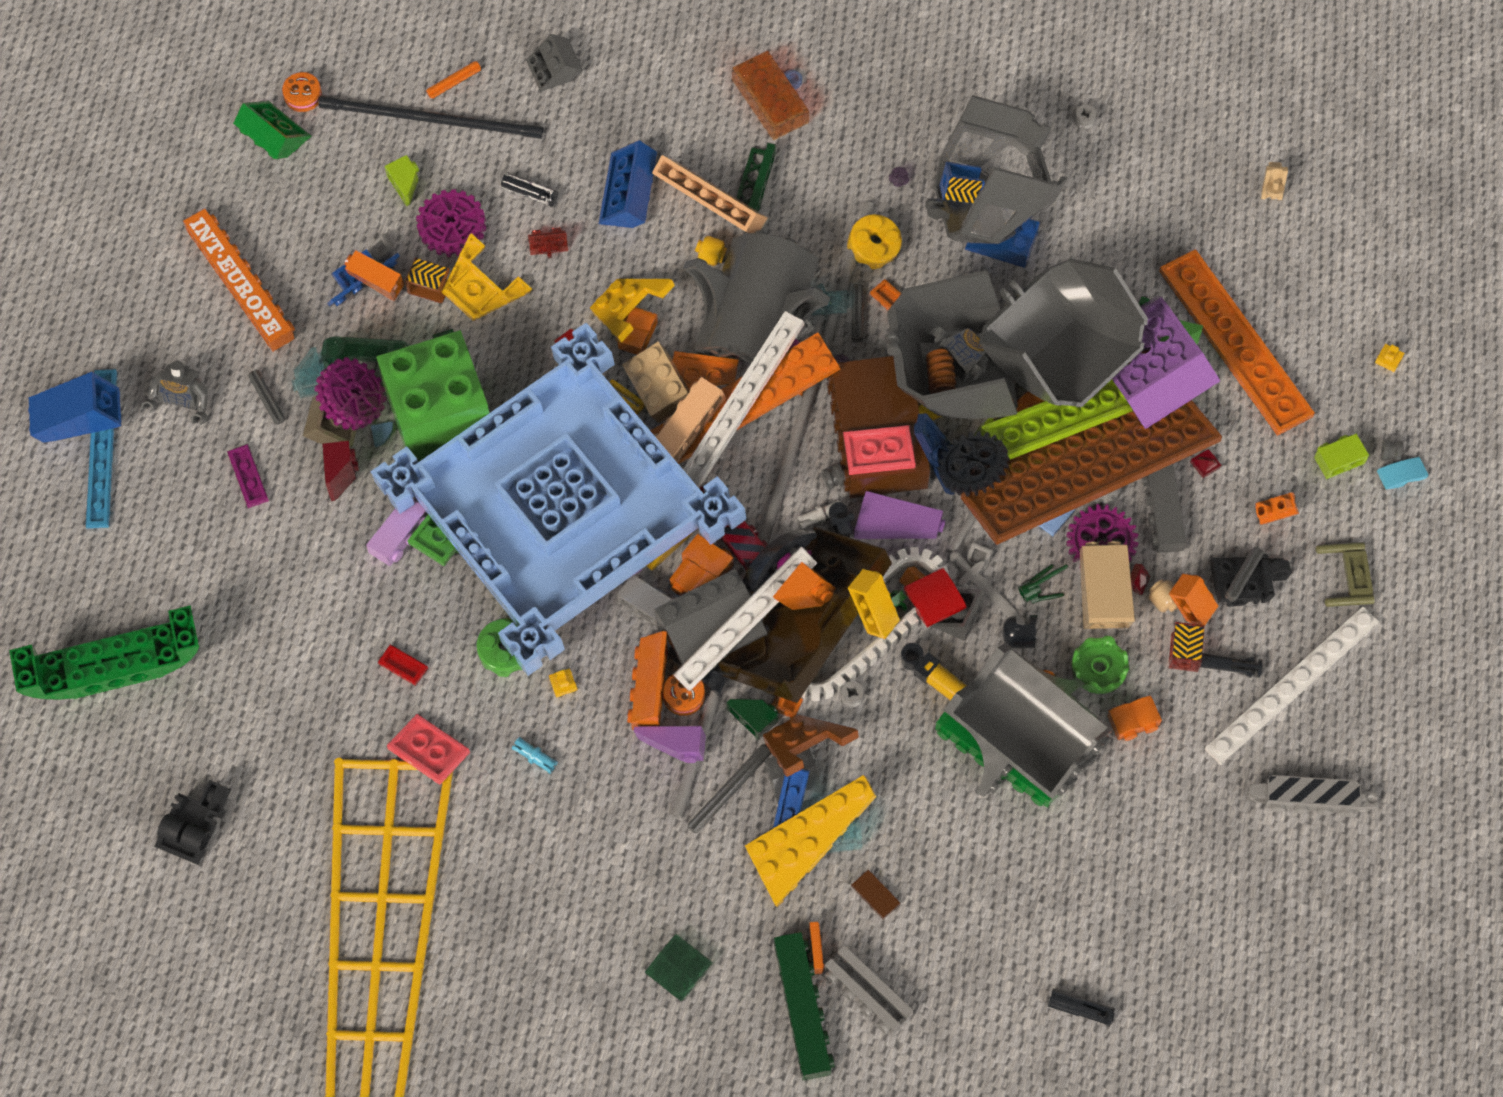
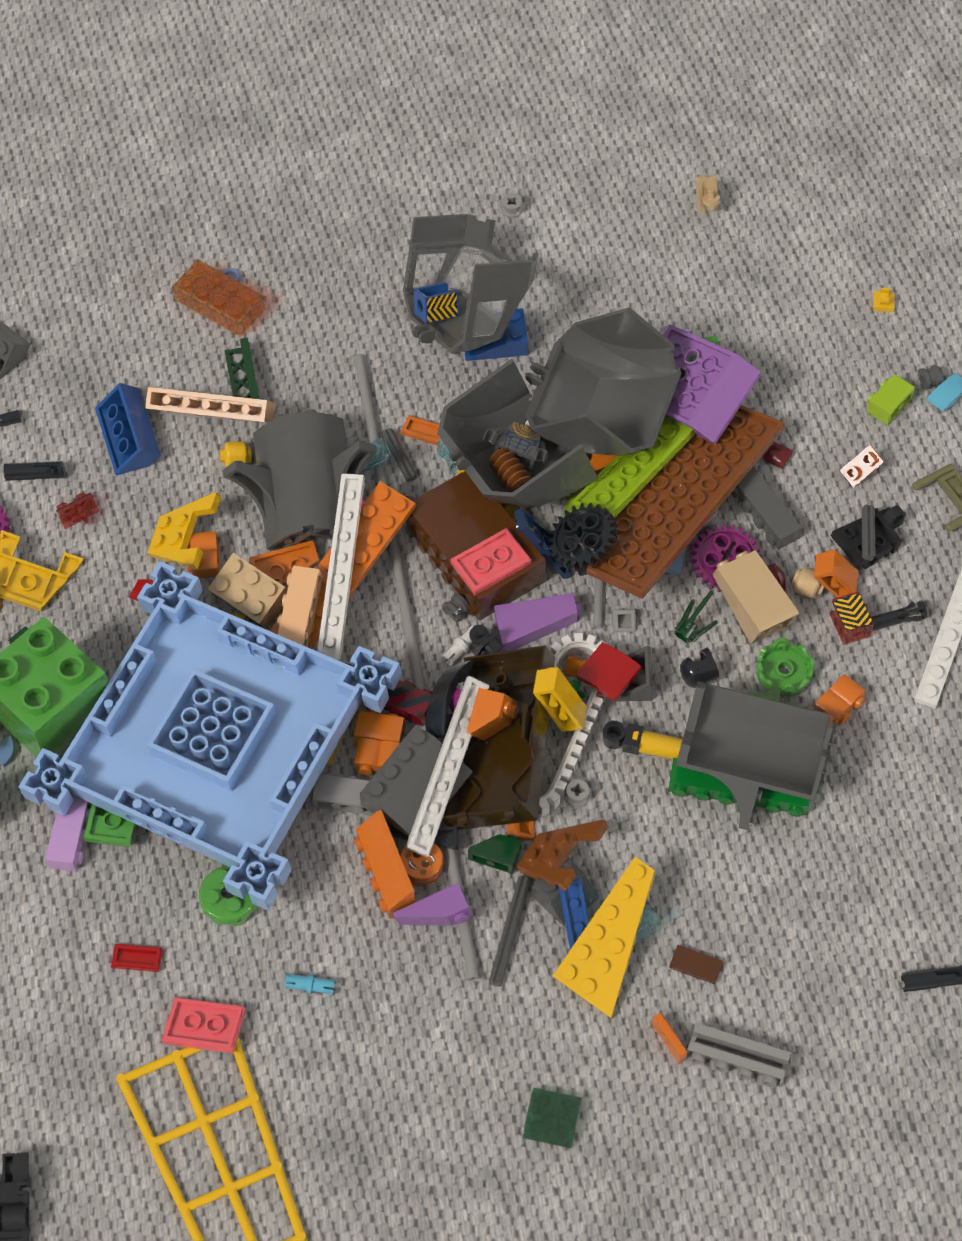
camera: 25 degrees left, 5 degrees down
(562, 682) = (301, 904): yellow tile -> none
(802, 1006) = (686, 1098): dark green brick -> none
(871, 253) = (381, 396): yellow plate -> none
(899, 172) = (373, 317): clear purple plate -> none
(973, 574) = (627, 638): light grey sword -> none
(1237, 342) = (749, 340): orange plate -> none

